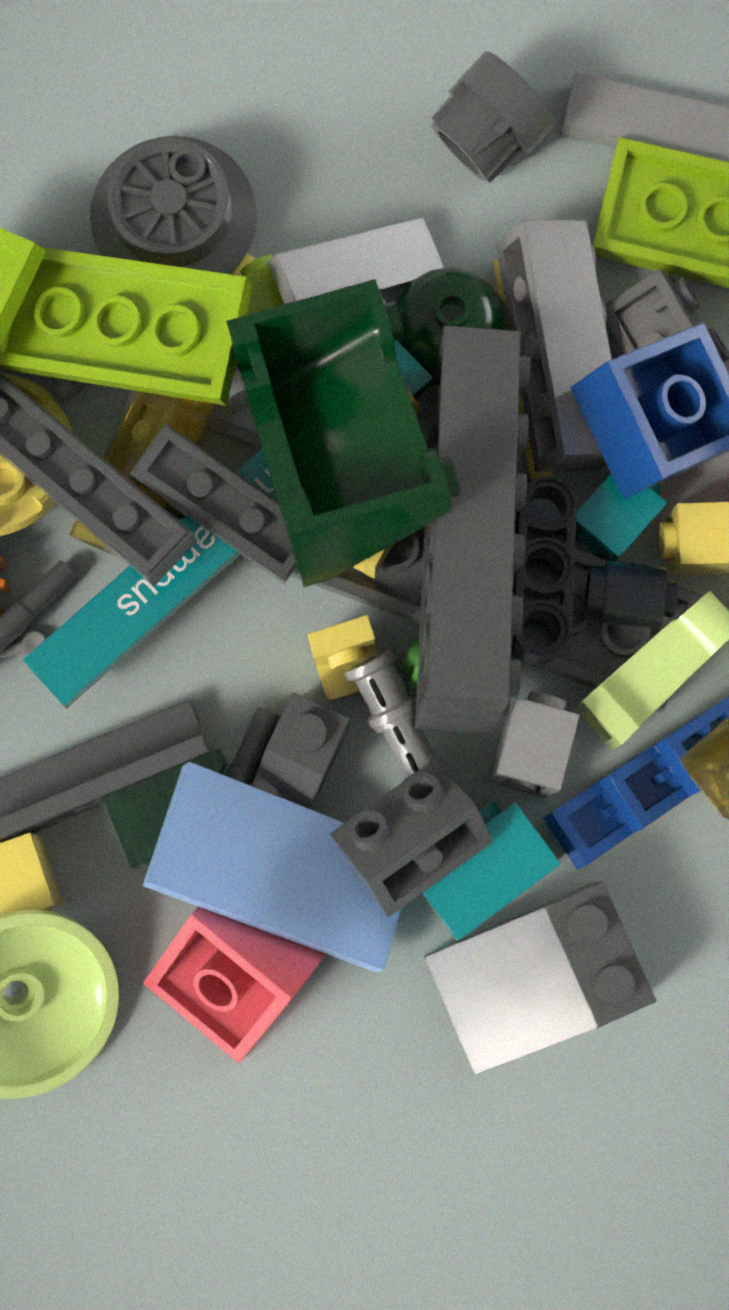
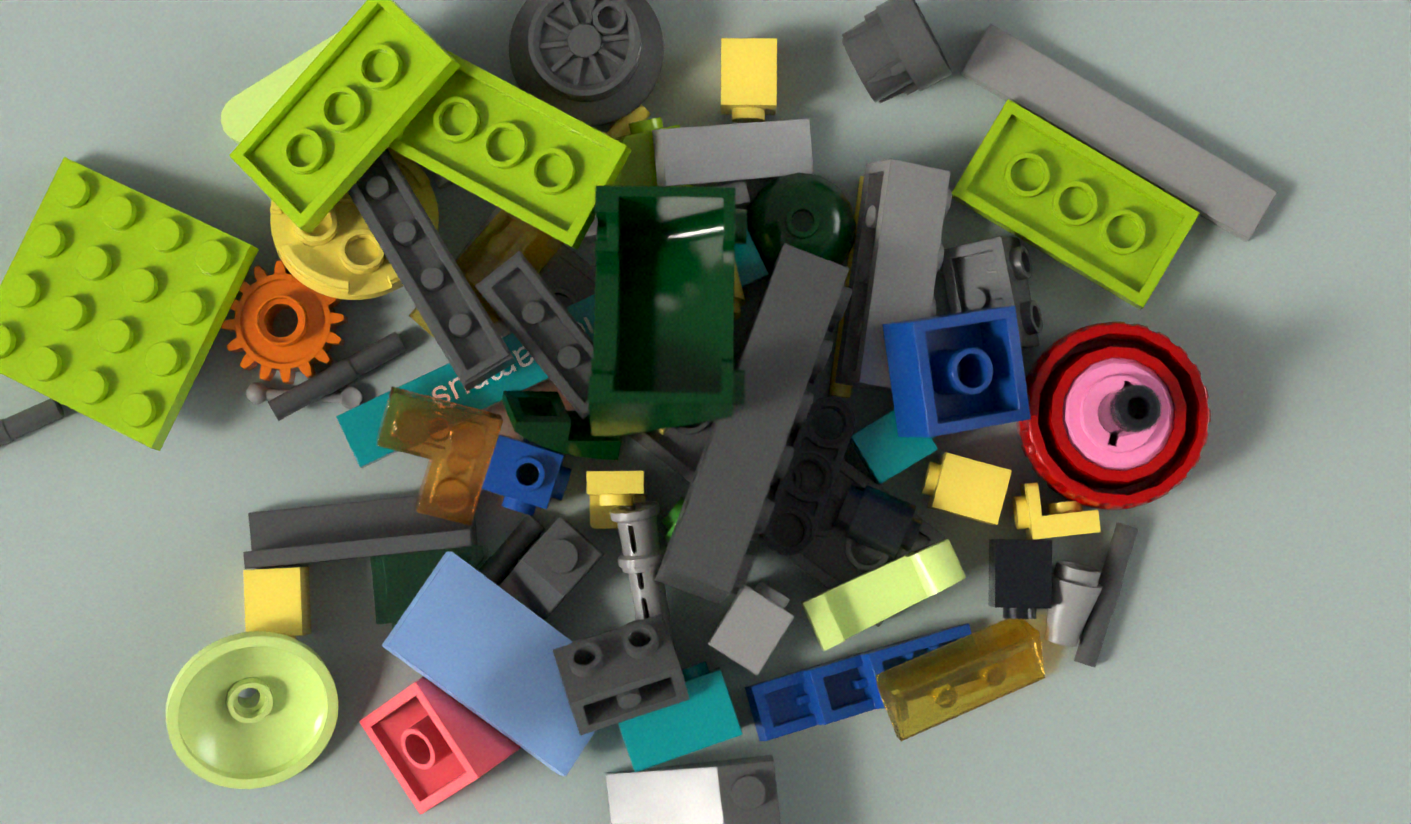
camera: 20 degrees right, 5 degrees up
(158, 647) = (455, 441): none -> clear orange plate
(222, 646) = (505, 479): none -> blue brick
(253, 598) = (545, 421): none -> dark green slope
(348, 190) = (748, 78): none -> light yellow brick

